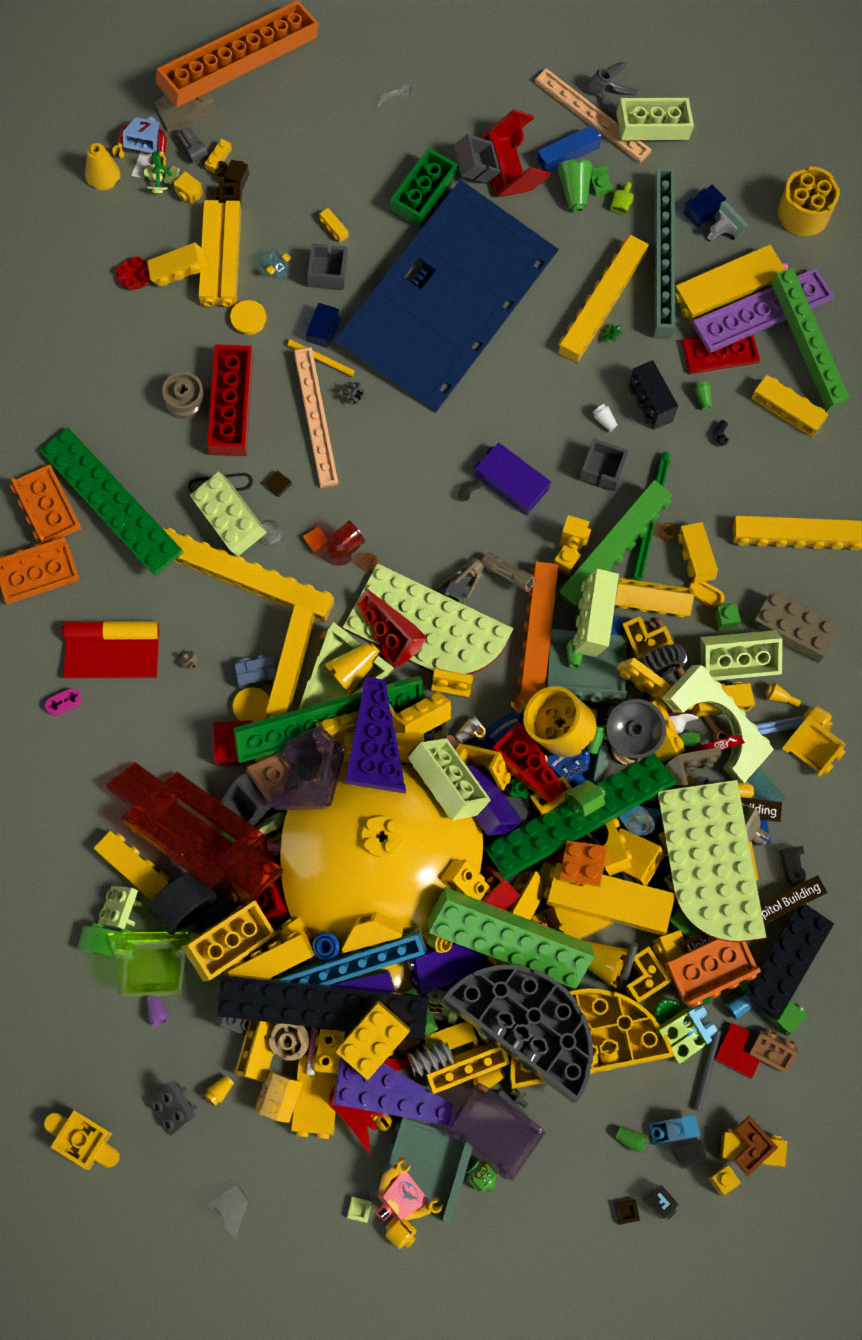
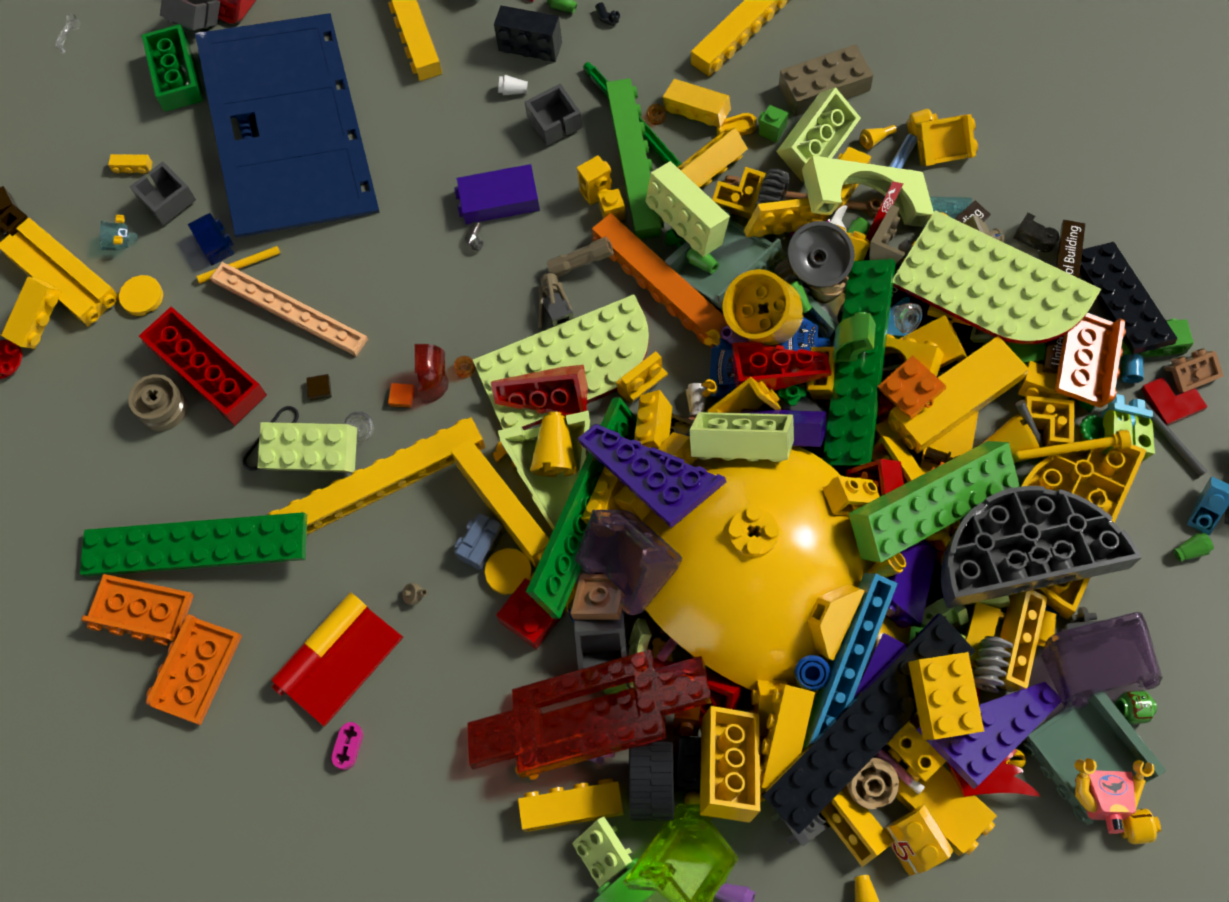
camera: 40 degrees left, 5 degrees down
(353, 393) = (297, 260): dark grey gear -> none
(359, 1209) = (1085, 850): yellowish green tile -> none
(612, 333) = (442, 28): green plant -> none
(661, 1030) = (1119, 440): none -> yellow piece

